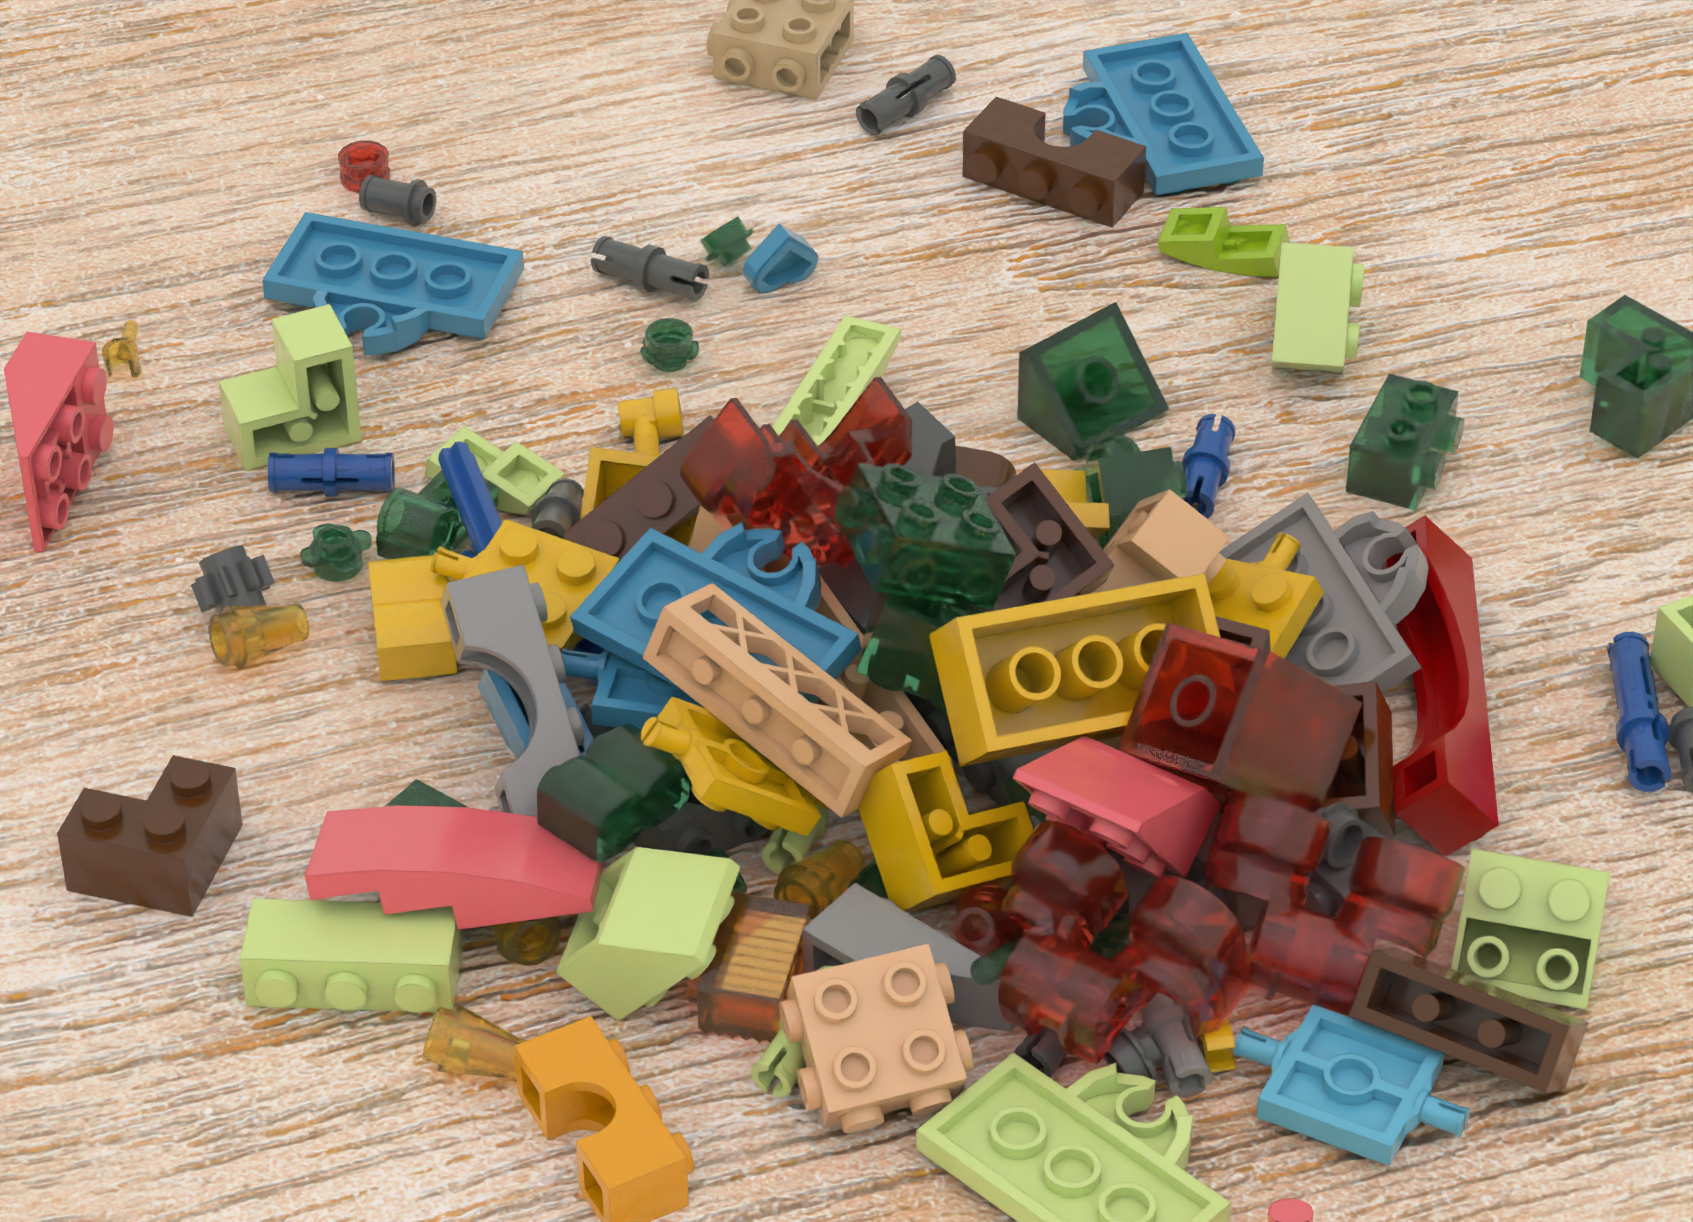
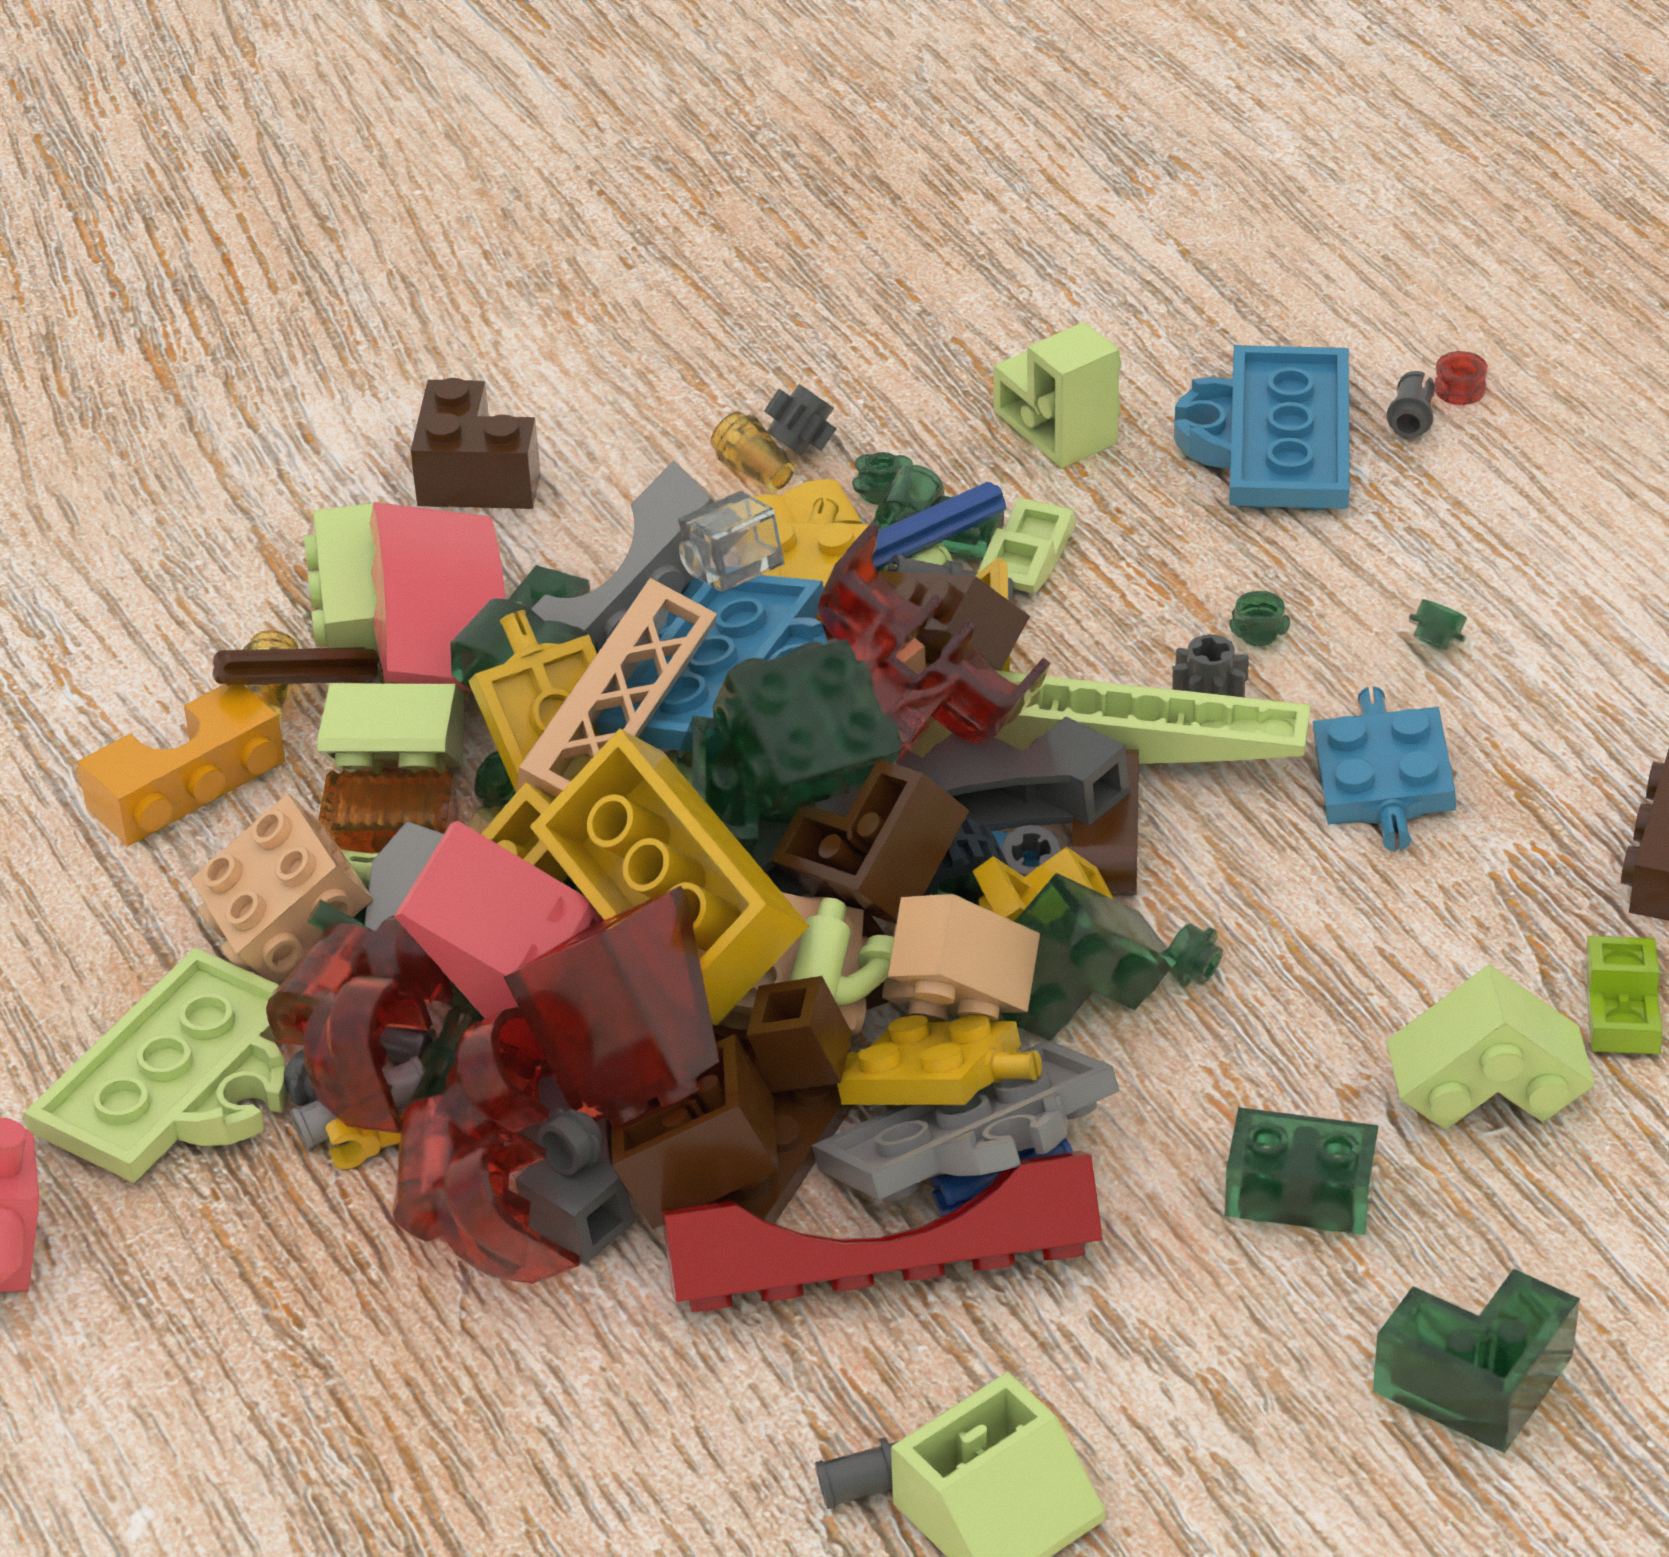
camera: 80 degrees right, 0 degrees up
(56, 424) = (932, 266): coral slope -> none
(123, 351) = (1108, 305): clear yellow hand -> none
(331, 472) = (989, 448): blue pin -> none
(503, 1001) = (295, 666): none -> reddish brown axle
(570, 575) = (730, 541): none -> clear brick
(650, 268) = (1373, 582): dark grey pin -> none
(651, 419) = (1138, 624): yellow brick -> none
(747, 375) = (1210, 667): none -> dark grey gear
(780, 260) = (1422, 663): dark azure tile -> none
(906, 296) = (1384, 766): none -> dark azure plate
(1086, 383) = (1297, 908): clear green slope -> none
(1207, 462) = (1213, 1027): blue pin -> none
(1350, 1084) = (307, 1240): medium azure plate -> none
(1468, 1019) = (381, 1307): reddish brown brick -> none
(1531, 926) = (549, 1347): yellowish green slope -> none
(1641, 727) = (877, 1417): blue pin -> none

